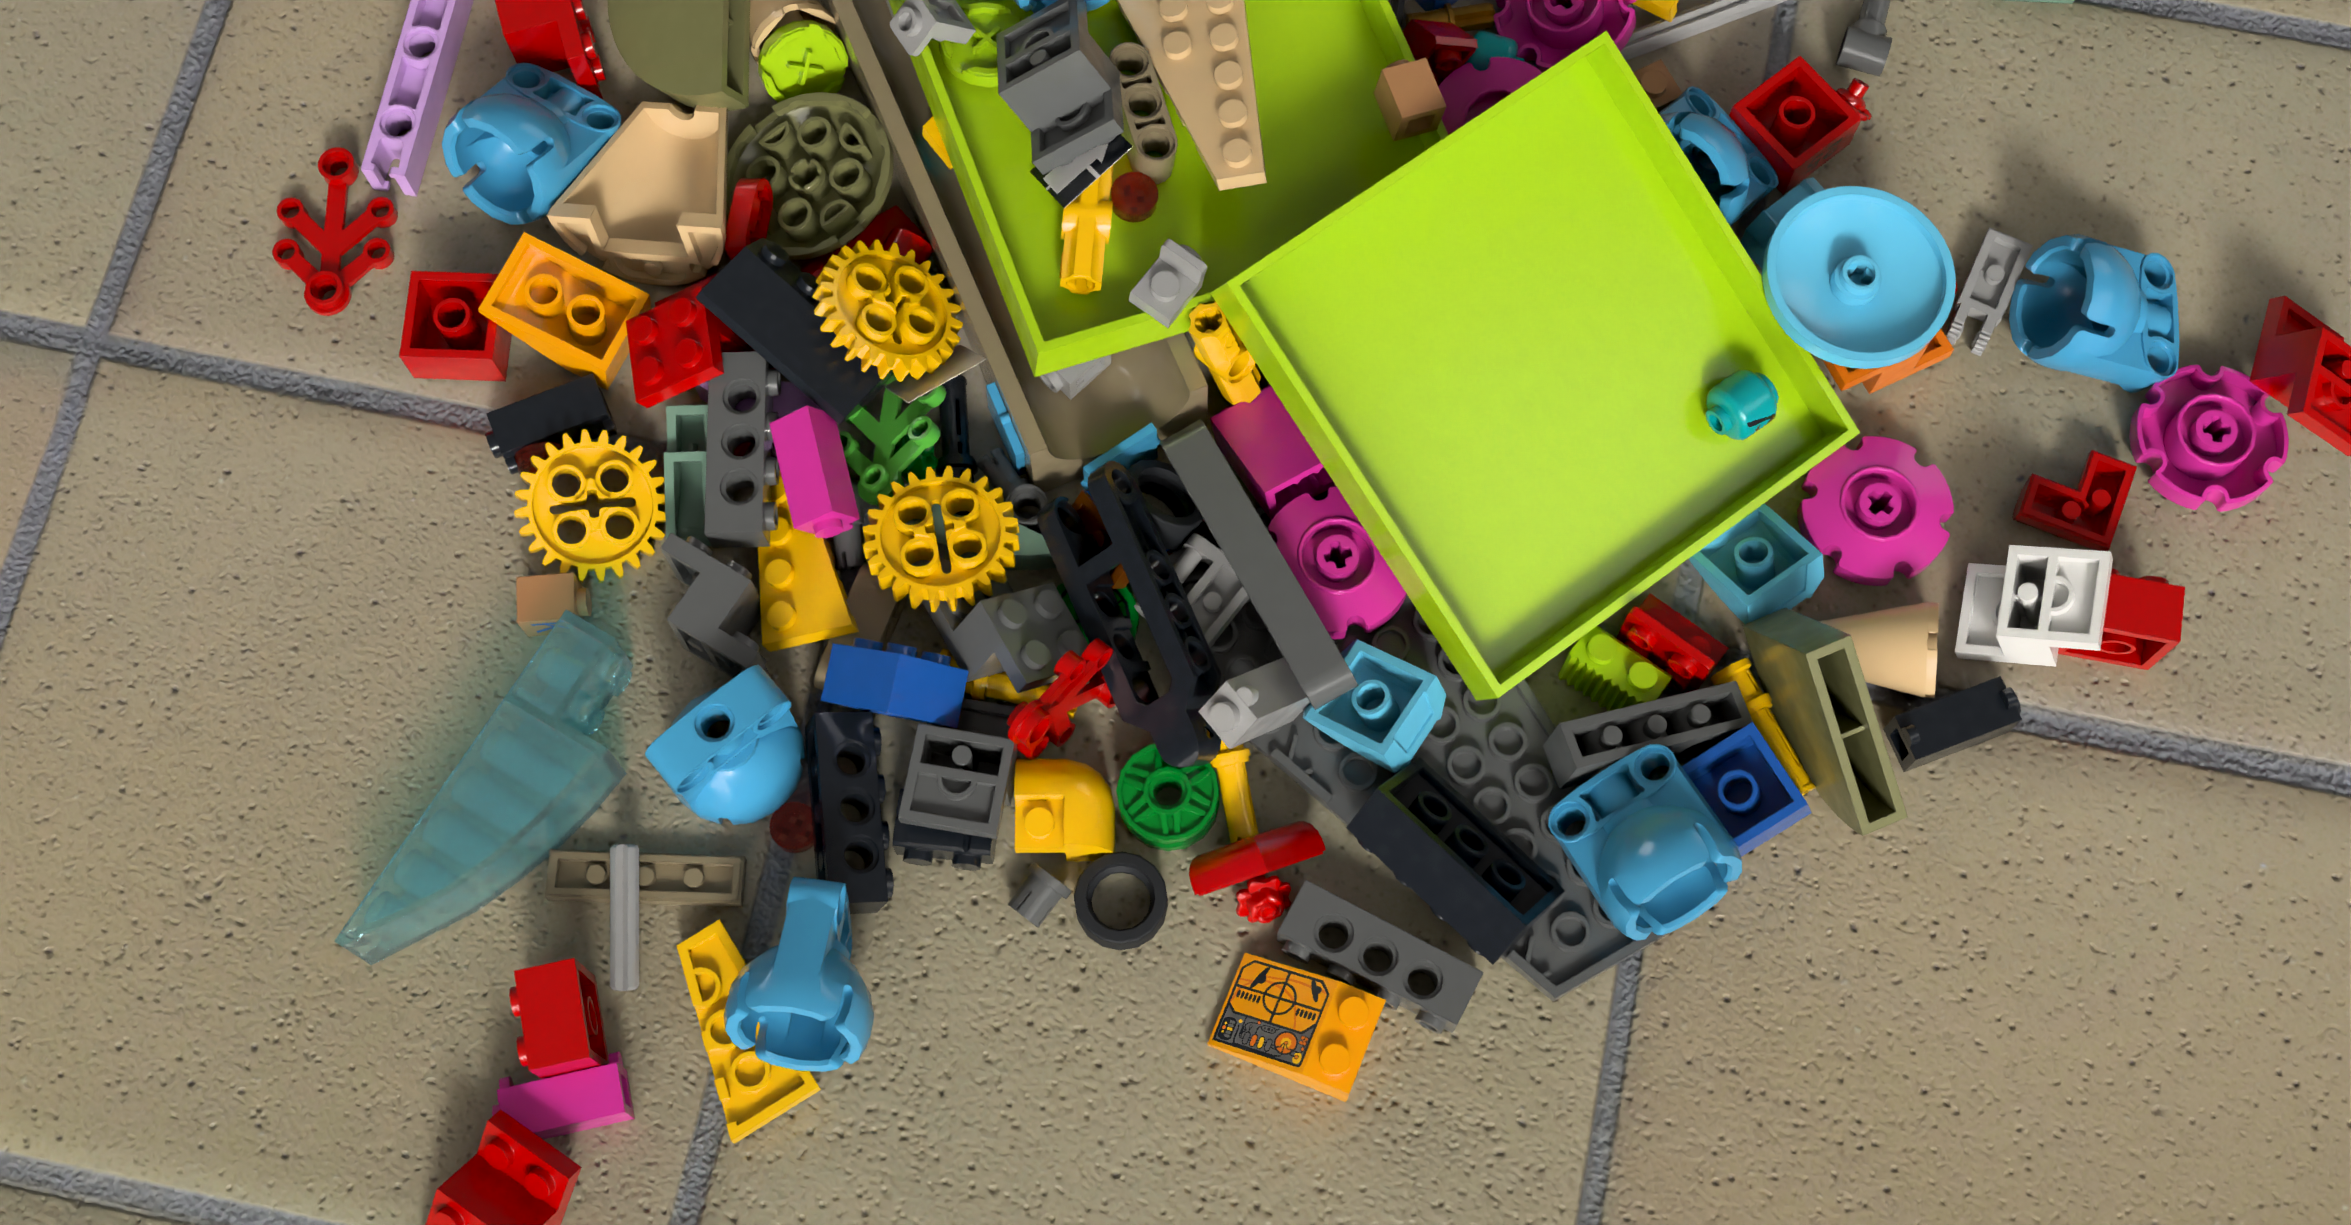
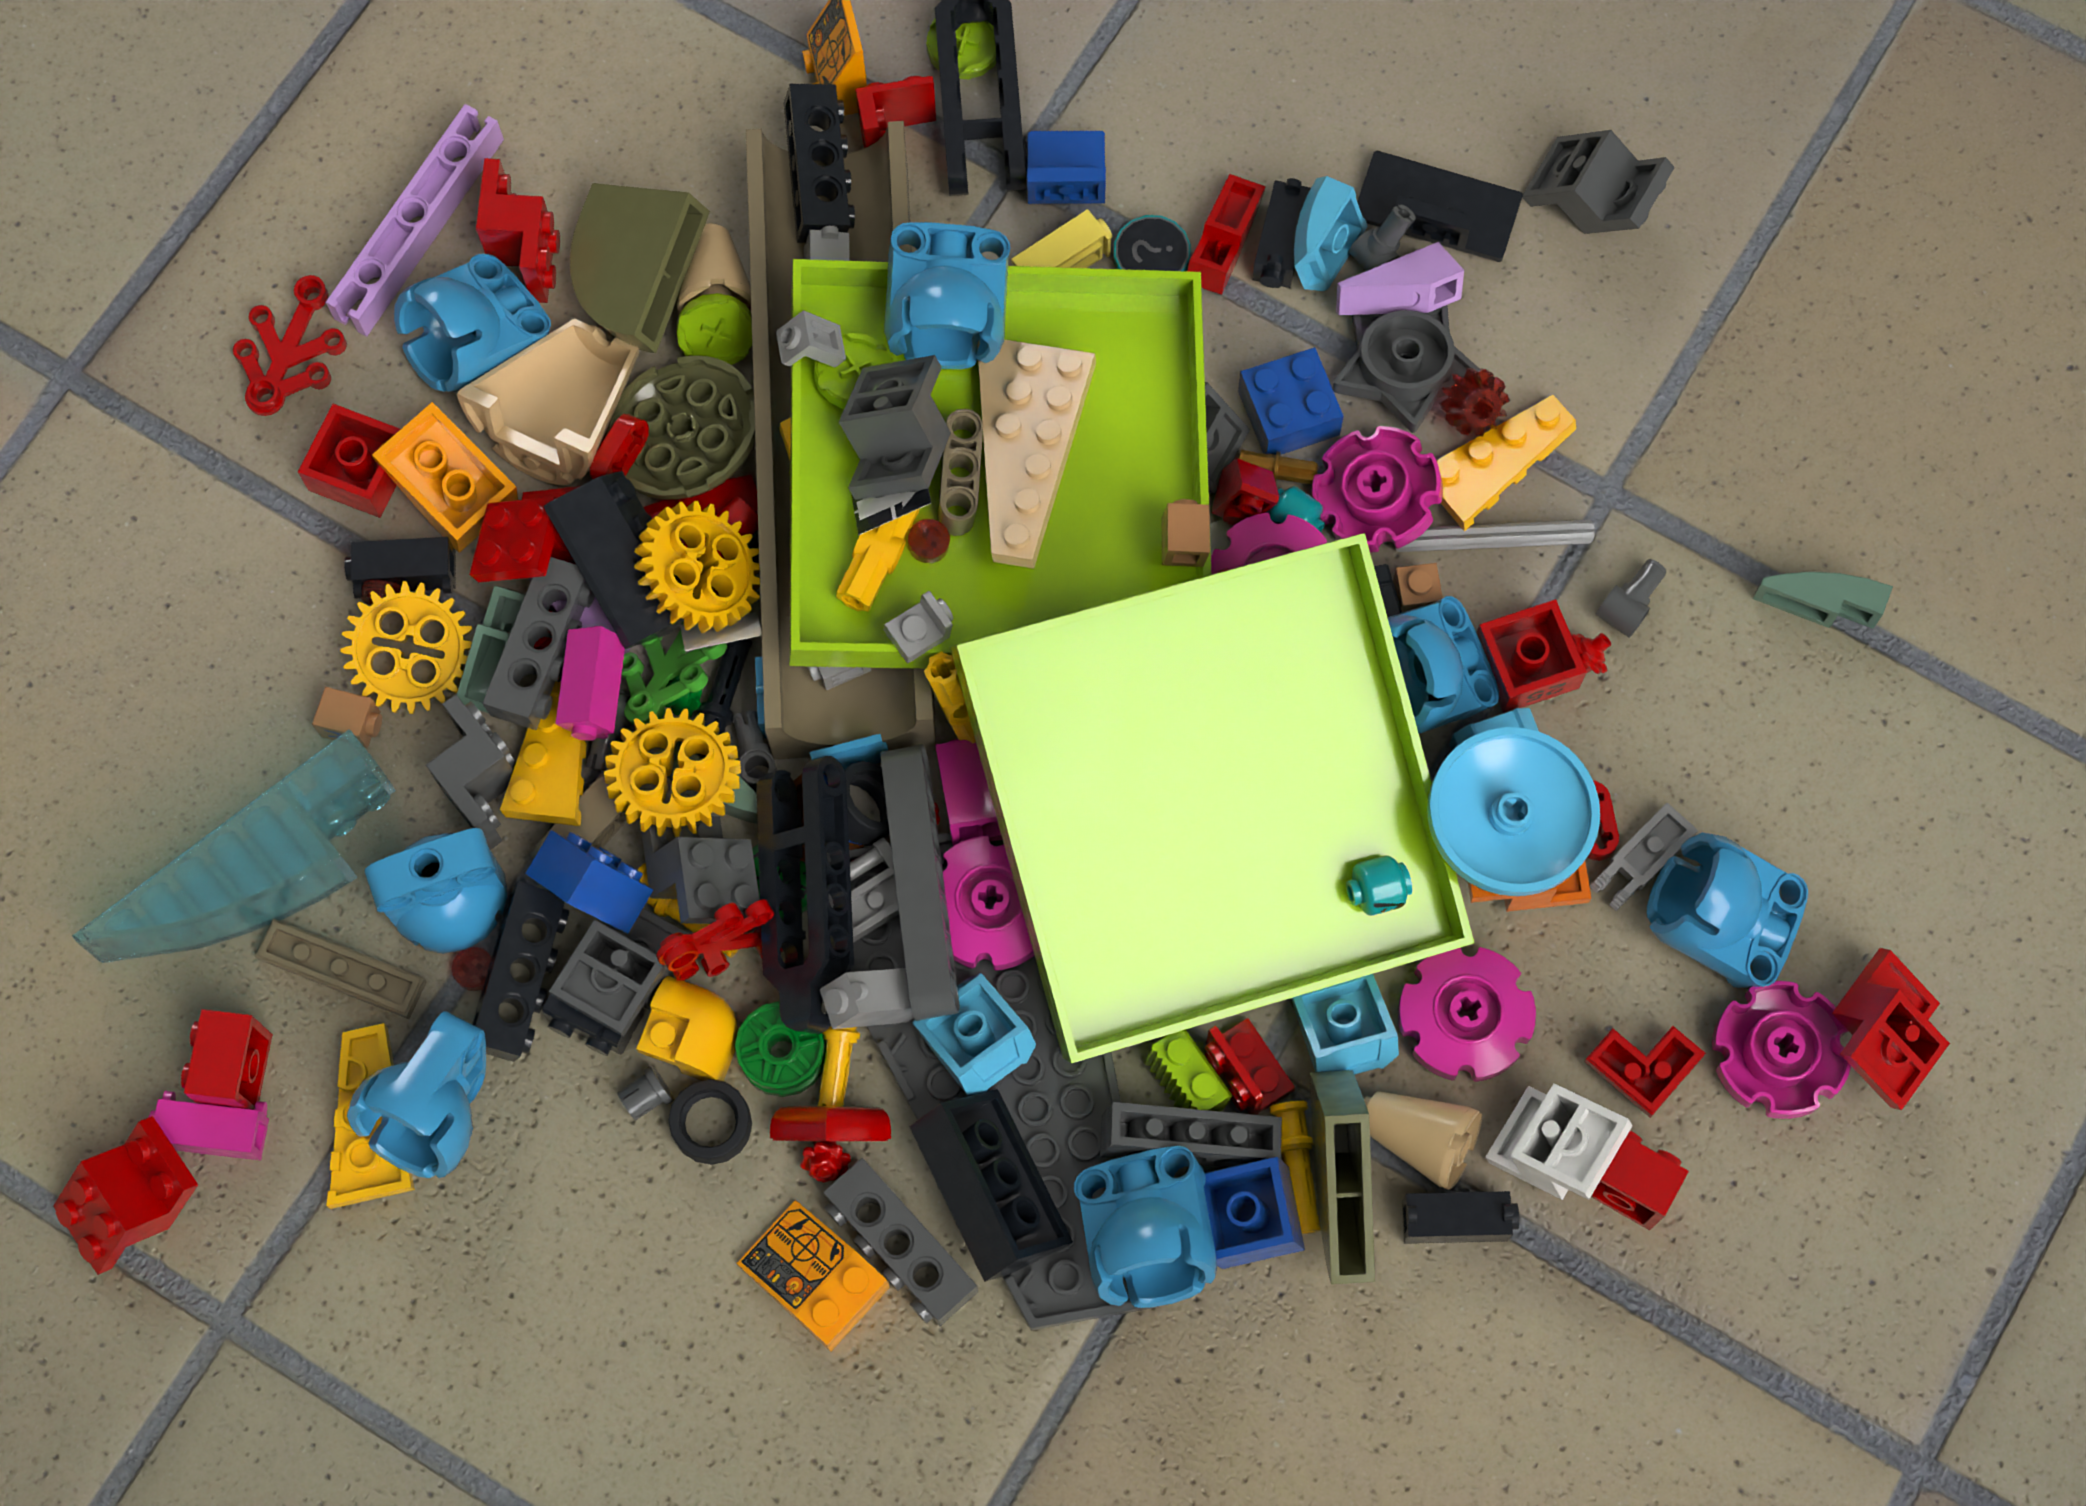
camera: 20 degrees right, 0 degrees up
(624, 917) = (310, 995): light grey axle -> none

